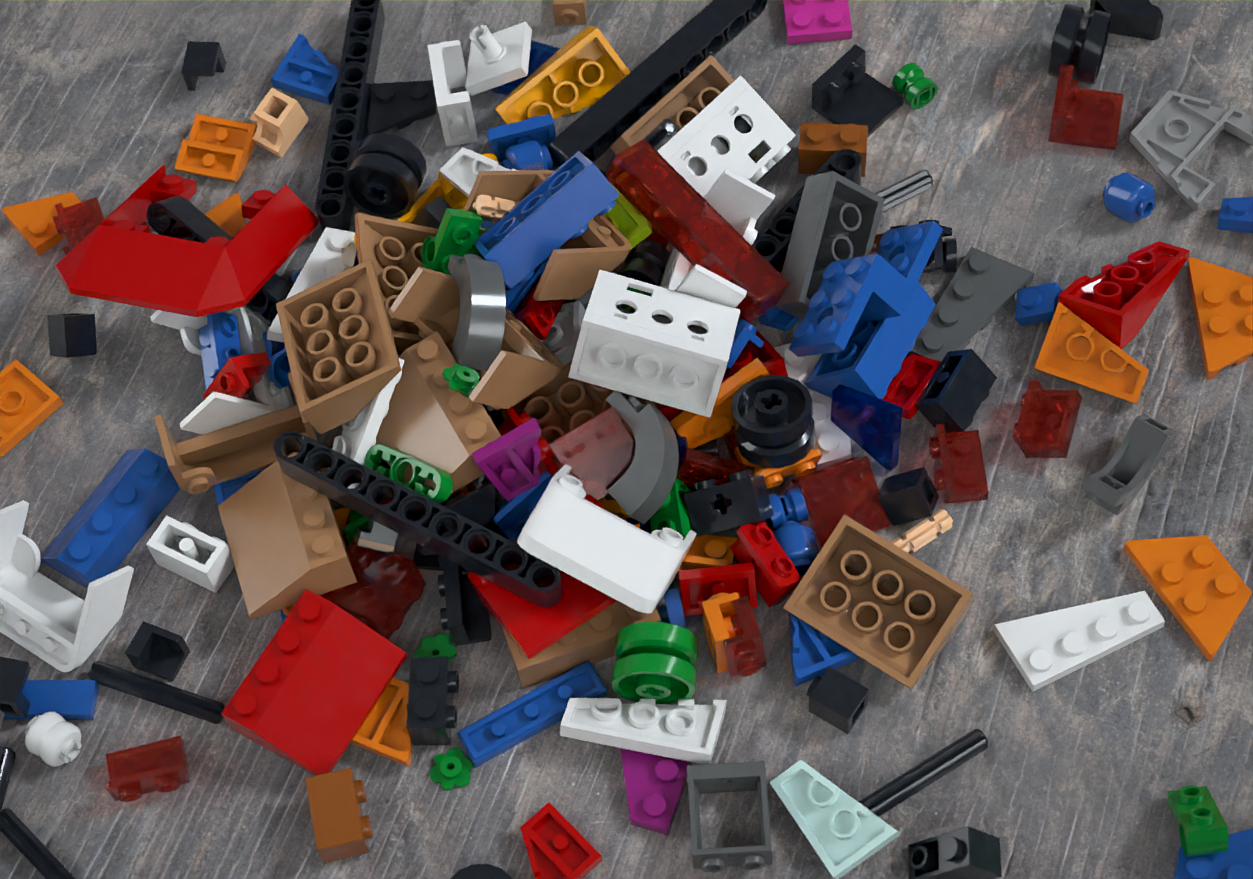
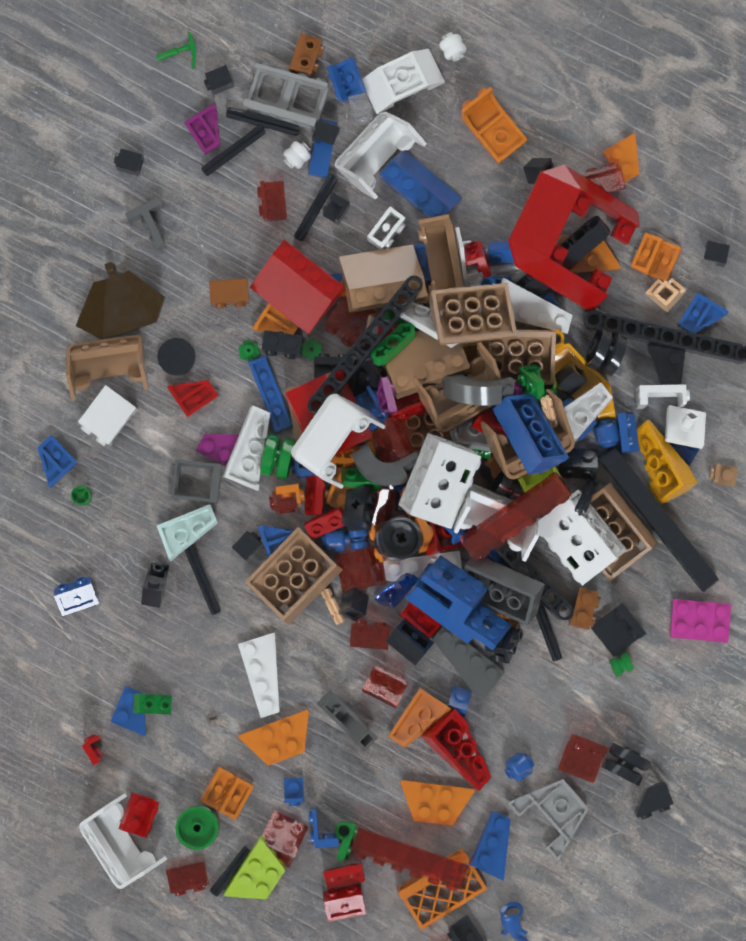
camera: 95 degrees right, 25 degrees up
(461, 379) = (434, 373): green plant -> none

